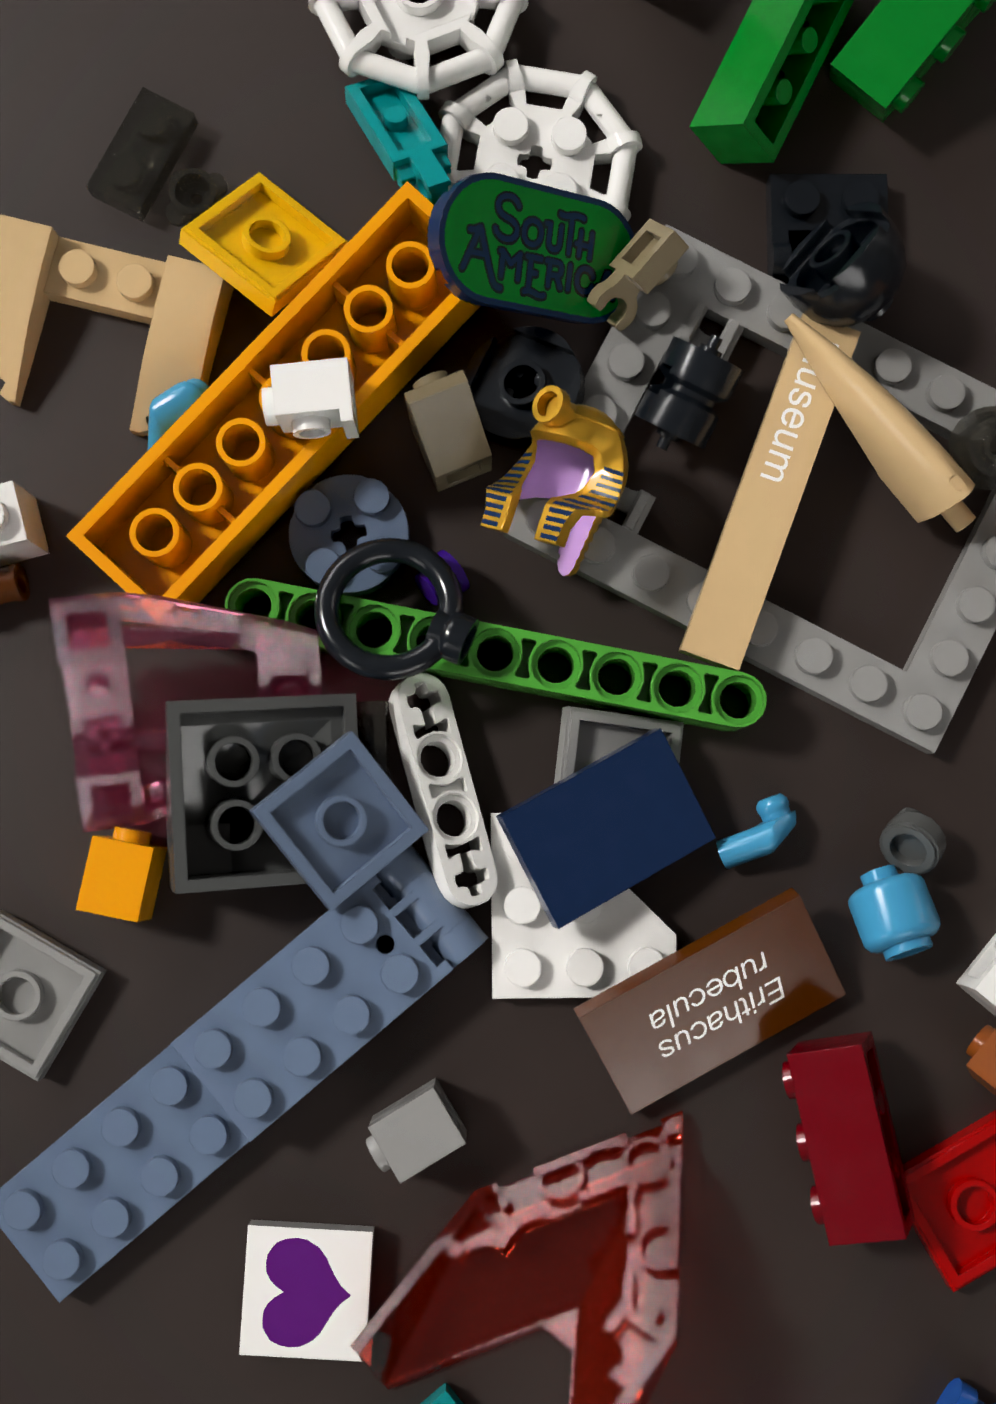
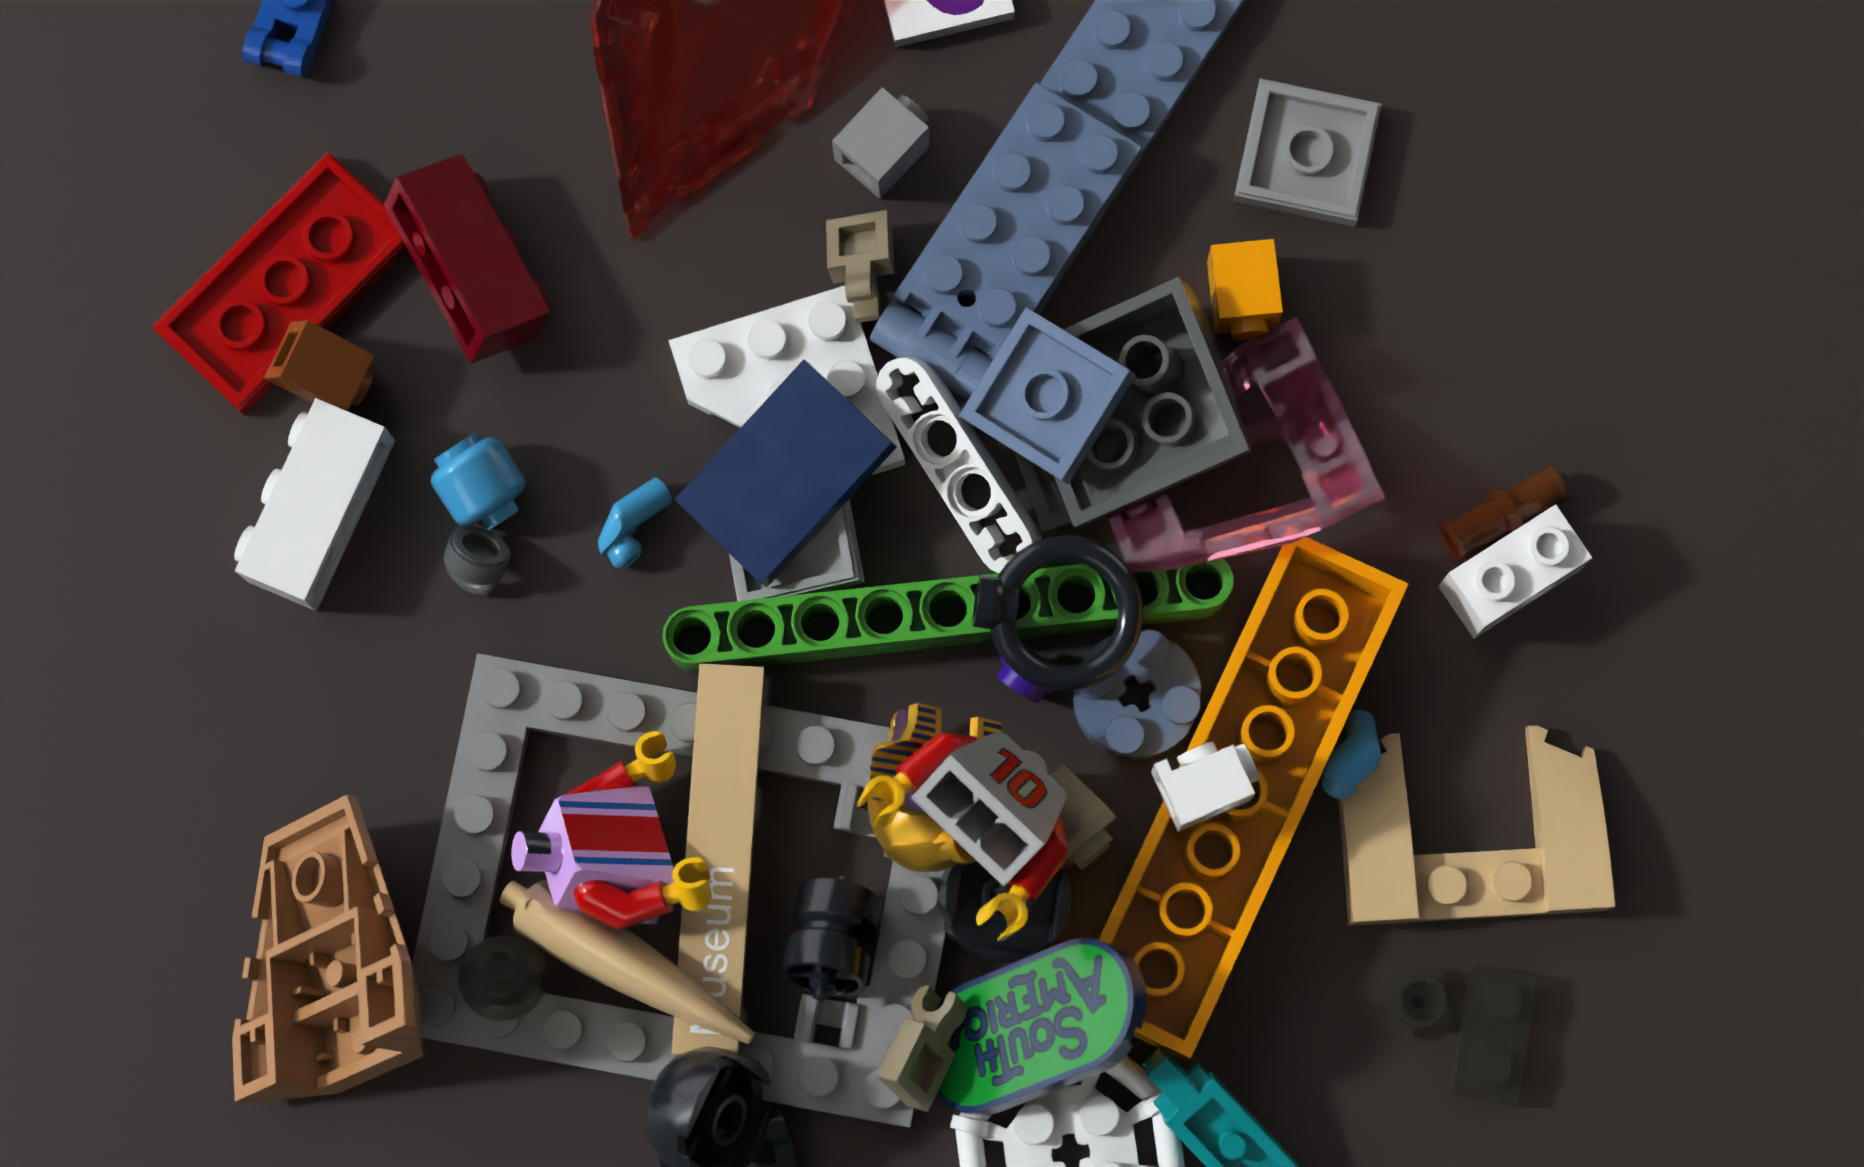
camera: 170 degrees right, 5 degrees down
(262, 243) = (1325, 967): yellow tile -> none
(474, 1023) = (858, 253): none -> dark tan plate
(515, 425) = (993, 805): none -> torso
(711, 1000) = (635, 344): reddish brown tile -> none
(871, 520) = (609, 849): none -> torso

